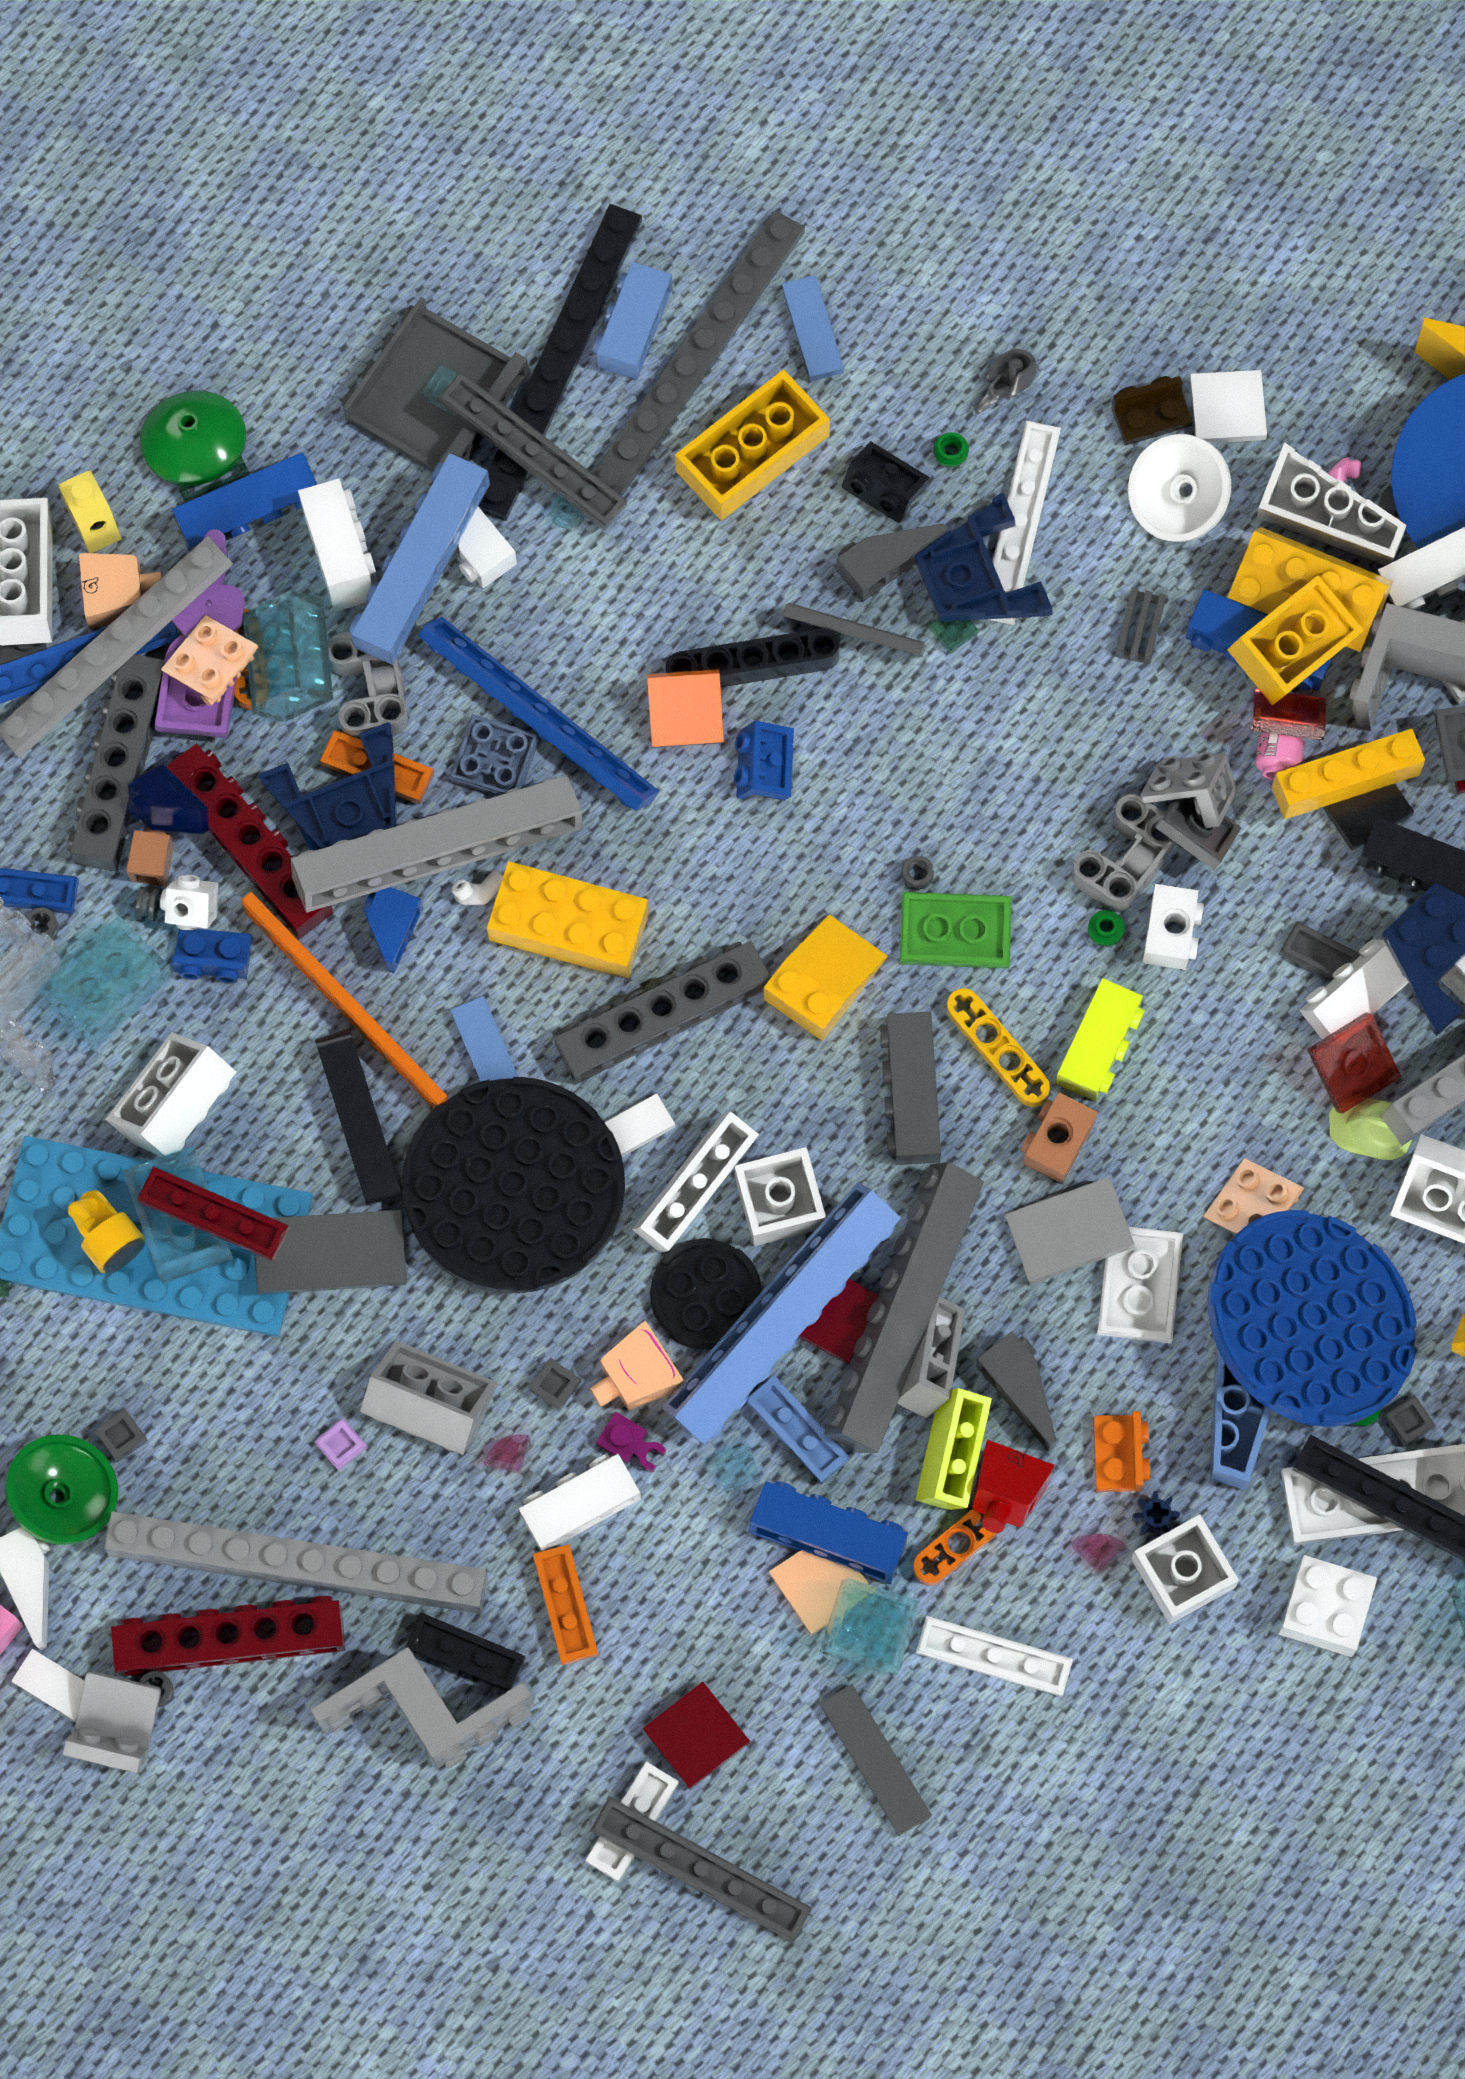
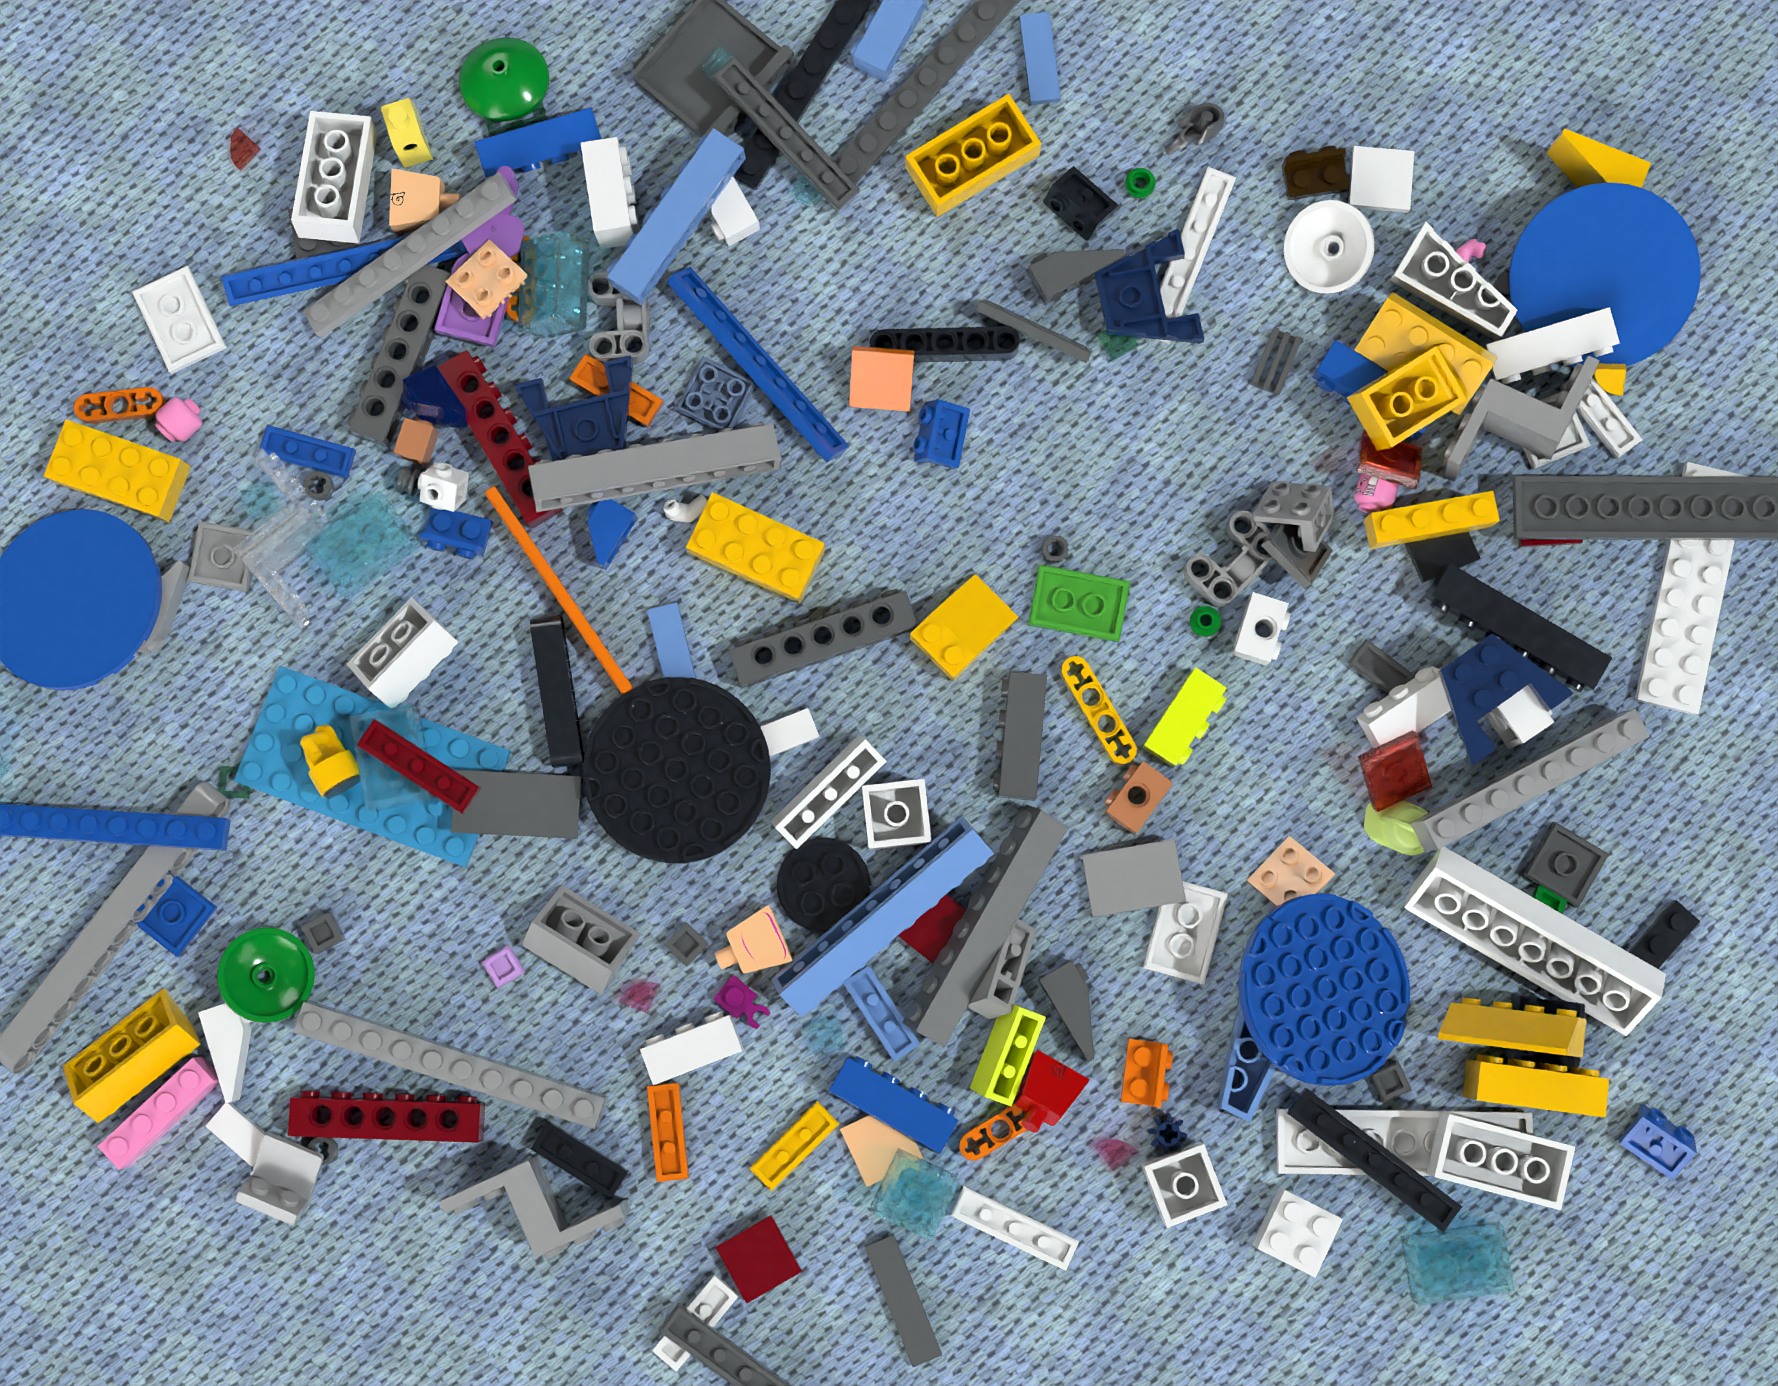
camera: 10 degrees right, 10 degrees up
(718, 1600) = (794, 1145): none -> yellow tile

